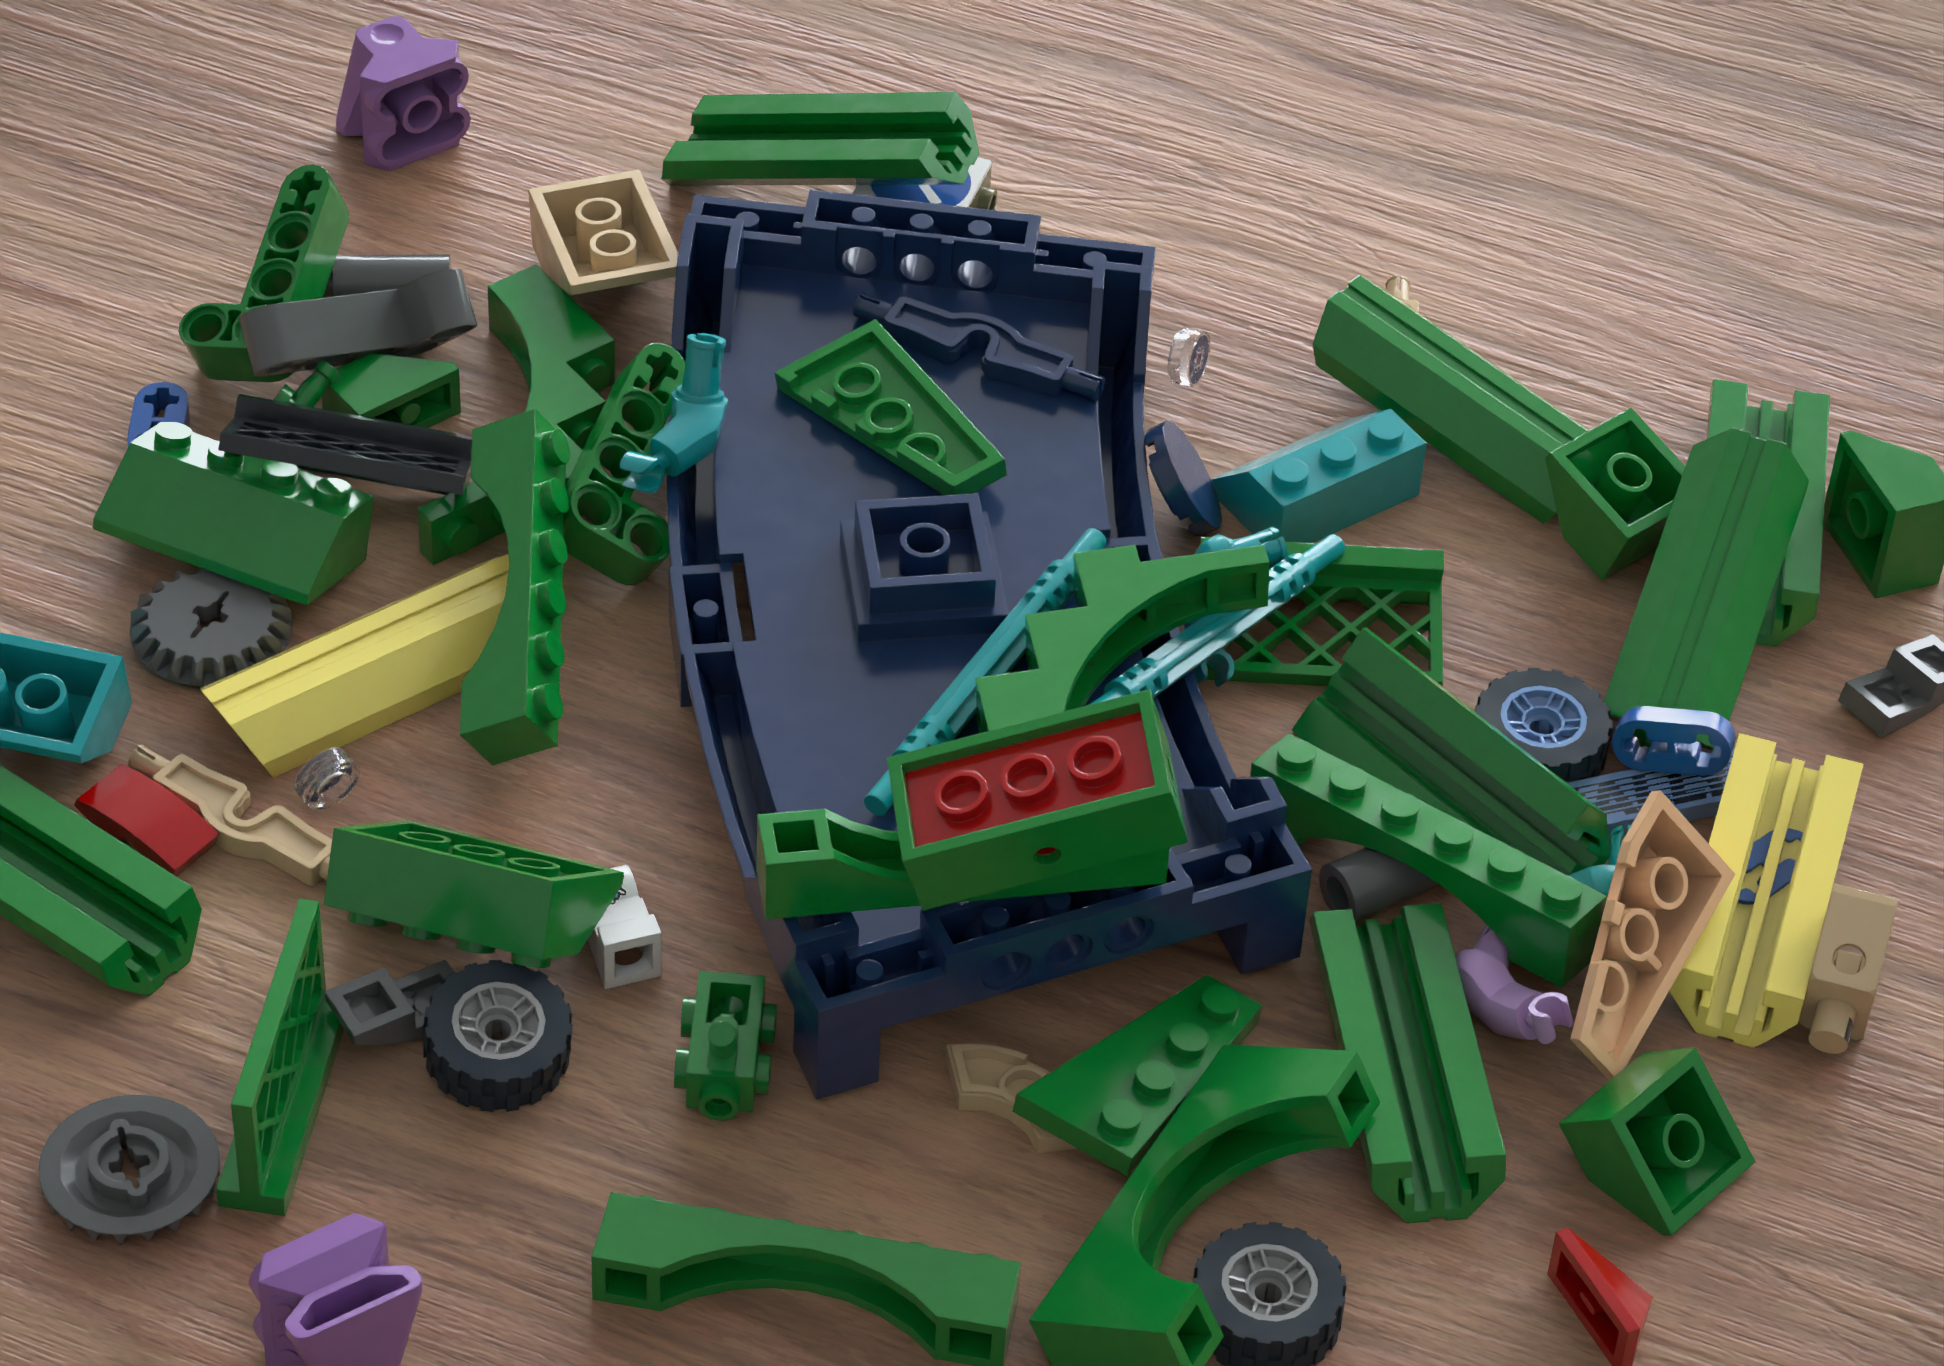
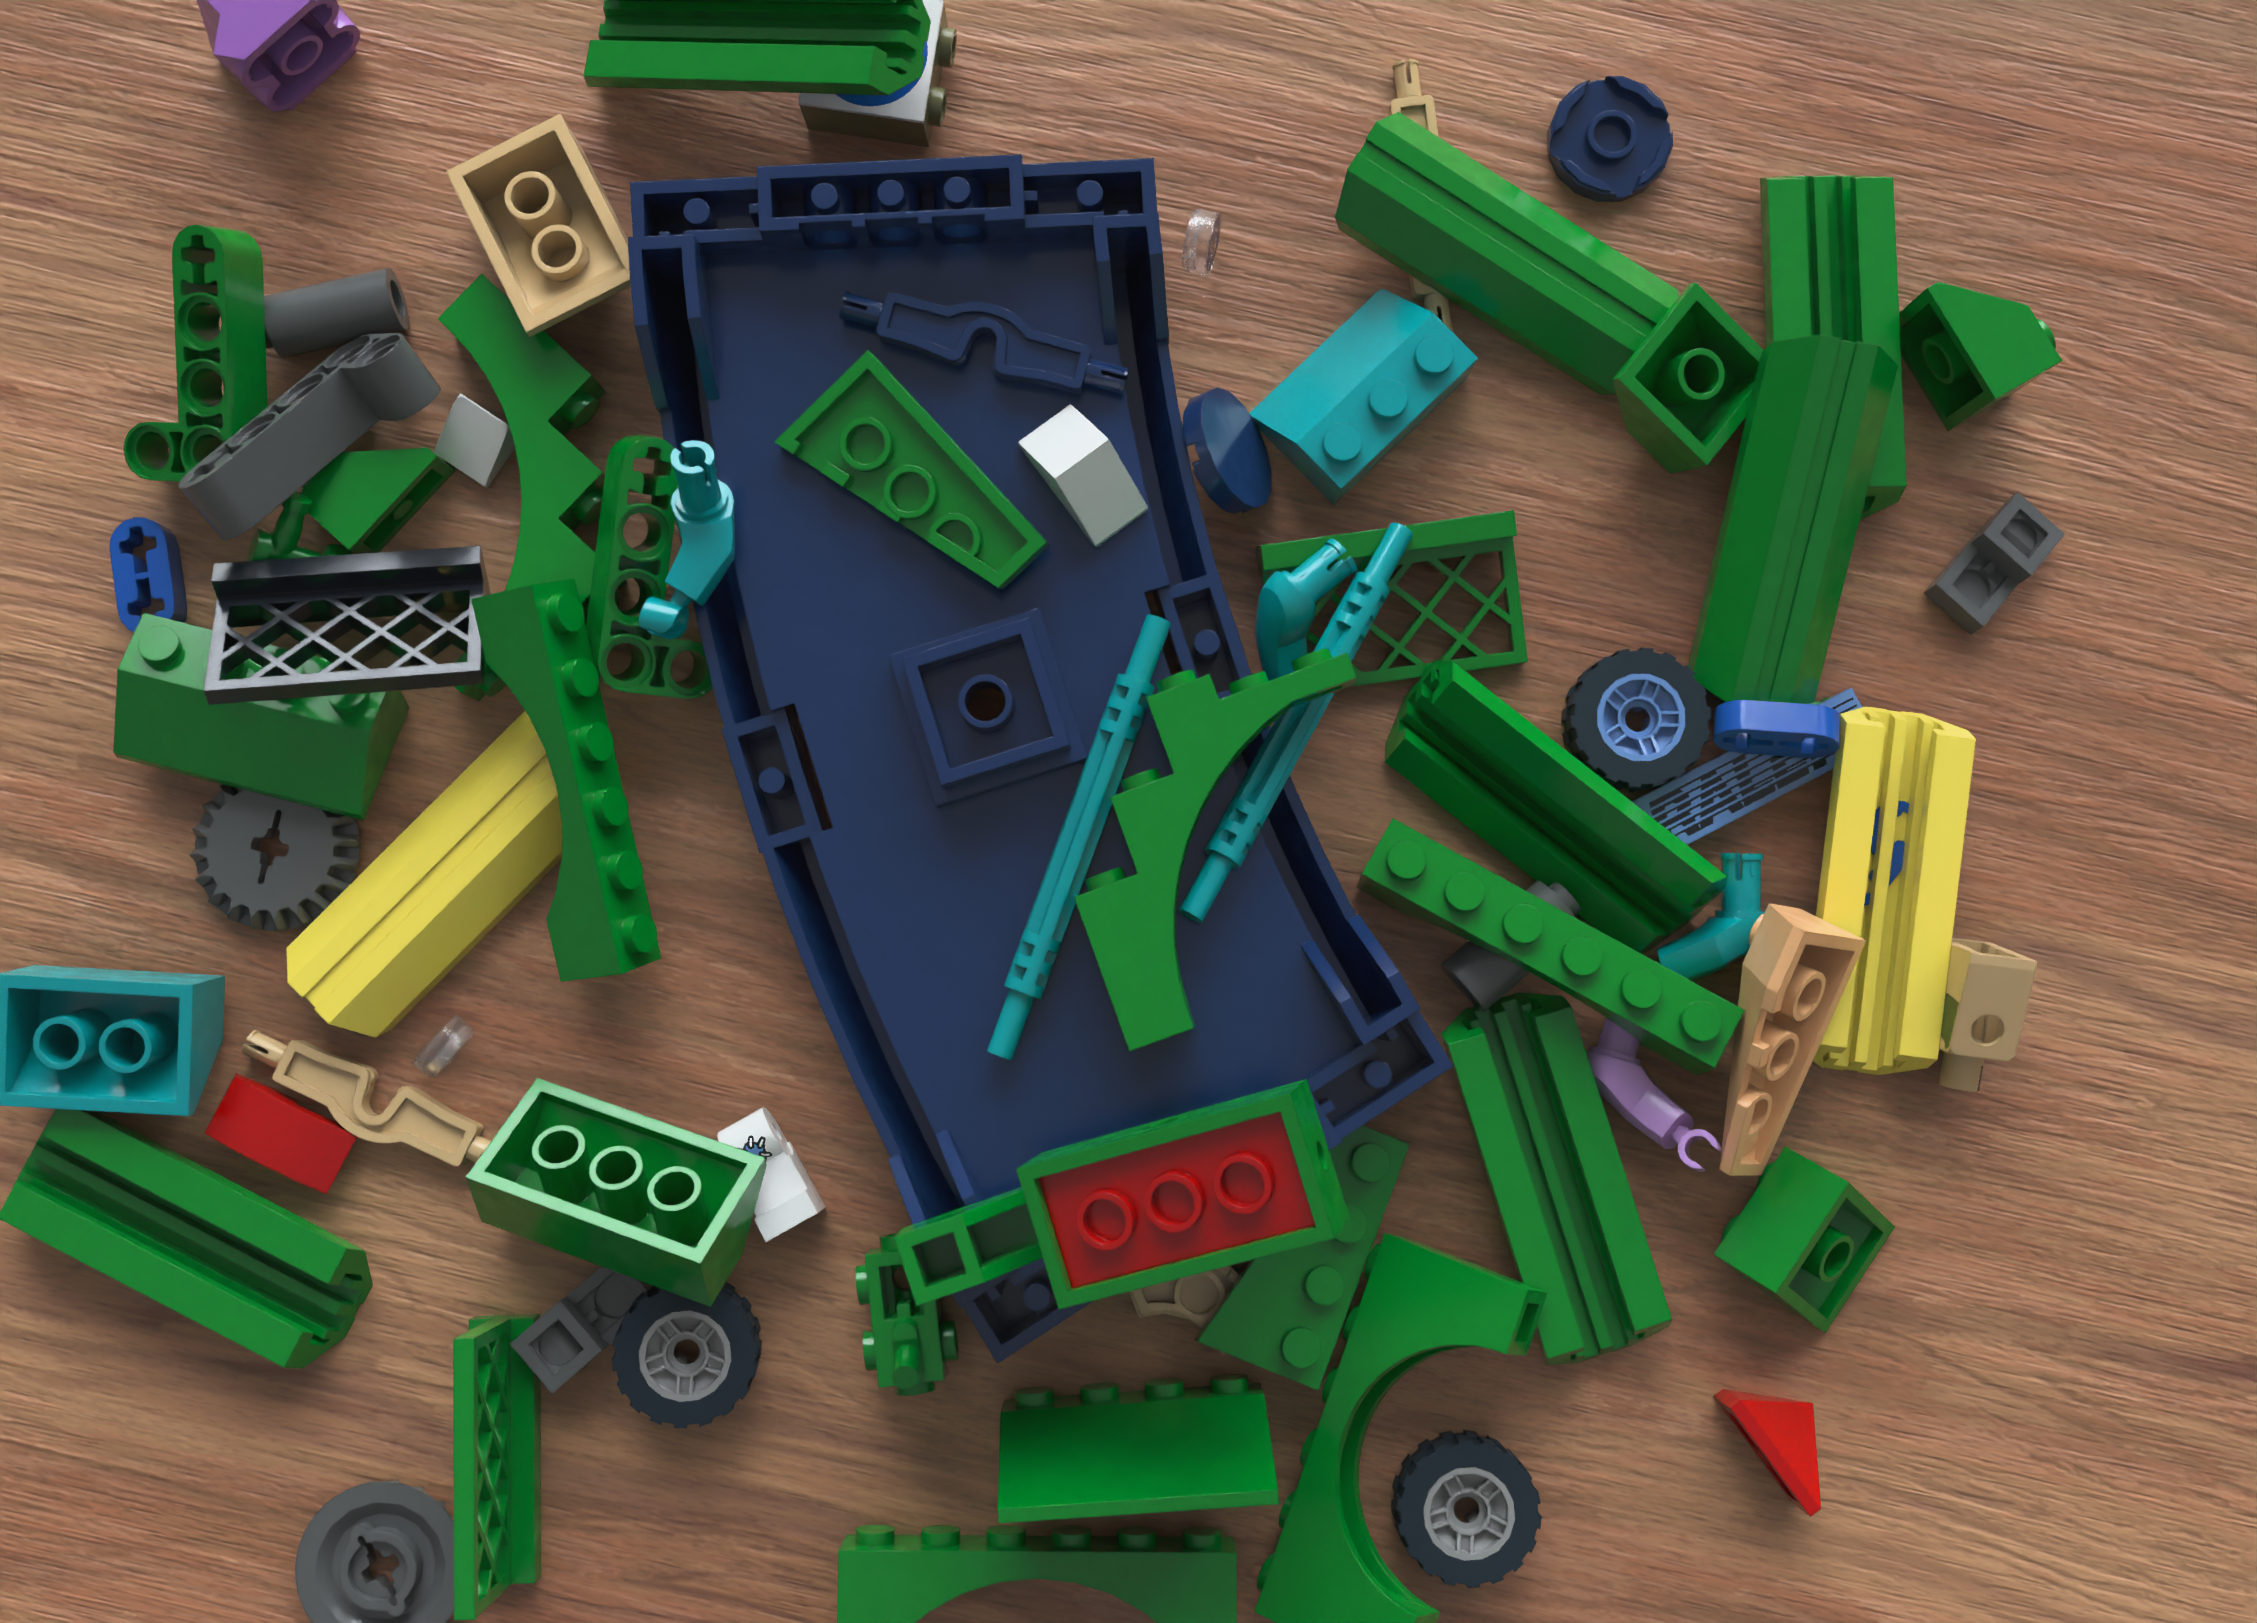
camera: 10 degrees left, 40 degrees up
(493, 384) = (475, 441): none -> white slope
(933, 1161) = (1135, 1450): none -> green slope
(1052, 440) = (1084, 474): none -> white slope
(1577, 357) = (1609, 139): none -> dark blue tile

